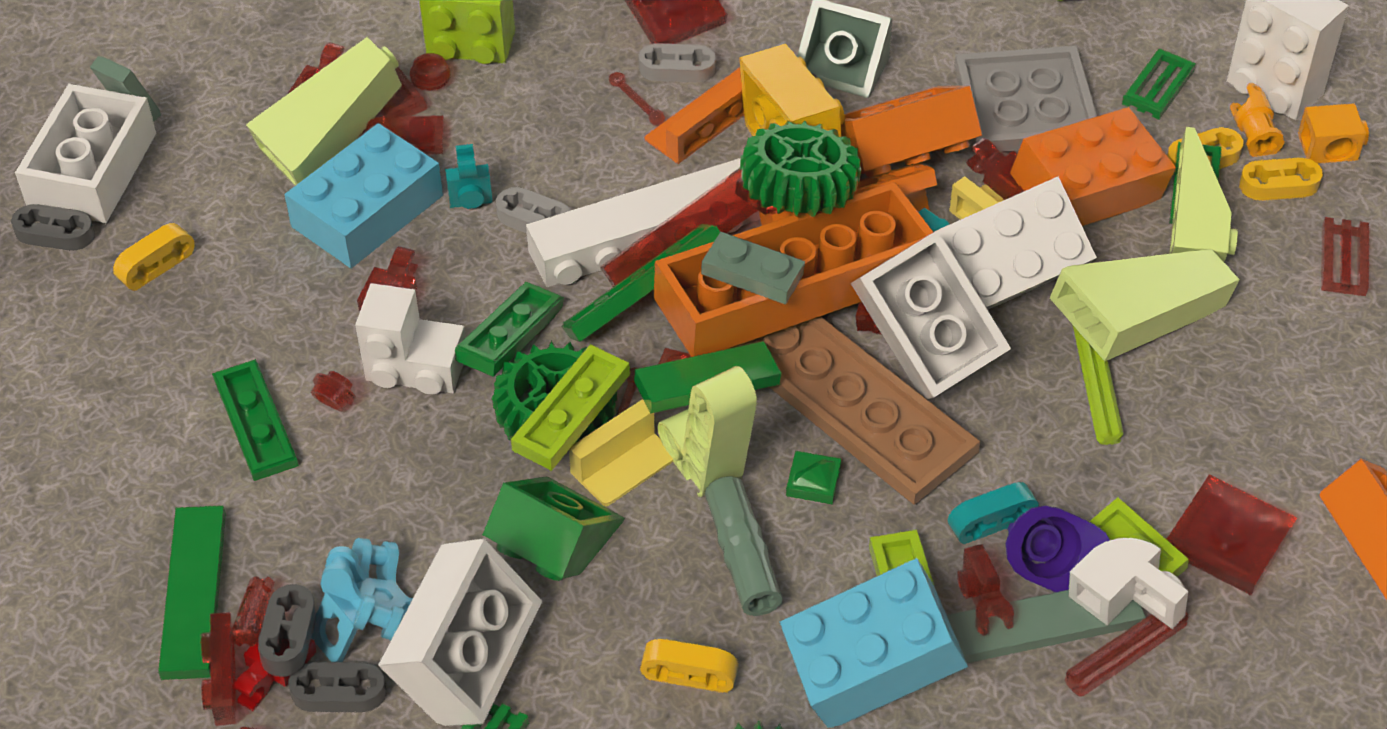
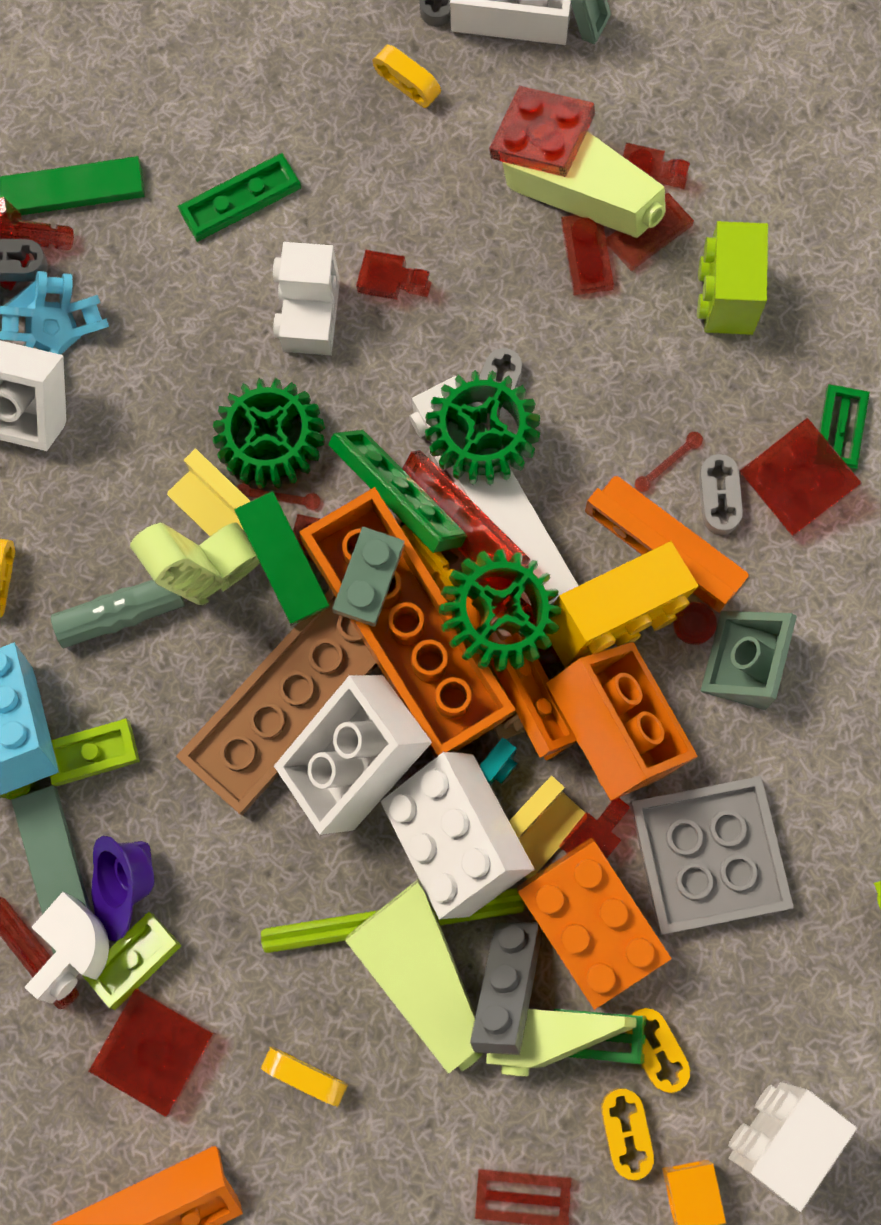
camera: 90 degrees right, 25 degrees up
(270, 131) = (542, 131): none -> clear red plate
(333, 390) = (264, 249): clear red plate -> none
(364, 195) = (492, 231): medium azure brick -> none
(430, 72) = (673, 264): clear red plate -> none
(469, 183) = (514, 319): teal plate -> none
(508, 329) = (344, 383): green tile -> none
(549, 526) = (132, 450): green slope -> none
(570, 407) = (225, 441): lime plate -> none
(597, 204) = (455, 408): none -> green gear
(813, 477) = (203, 667): green tile -> none
(982, 584) = (81, 818): clear red plate -> none
(990, 512) = (163, 829): teal beam -> none
(1147, 103) = (725, 985): green tile -> none
(1157, 229) = (506, 988): none -> dark grey plate
(1246, 406) = (304, 1076): none -> yellow beam
(1256, 121) = (707, 1109): light orange piece -> none

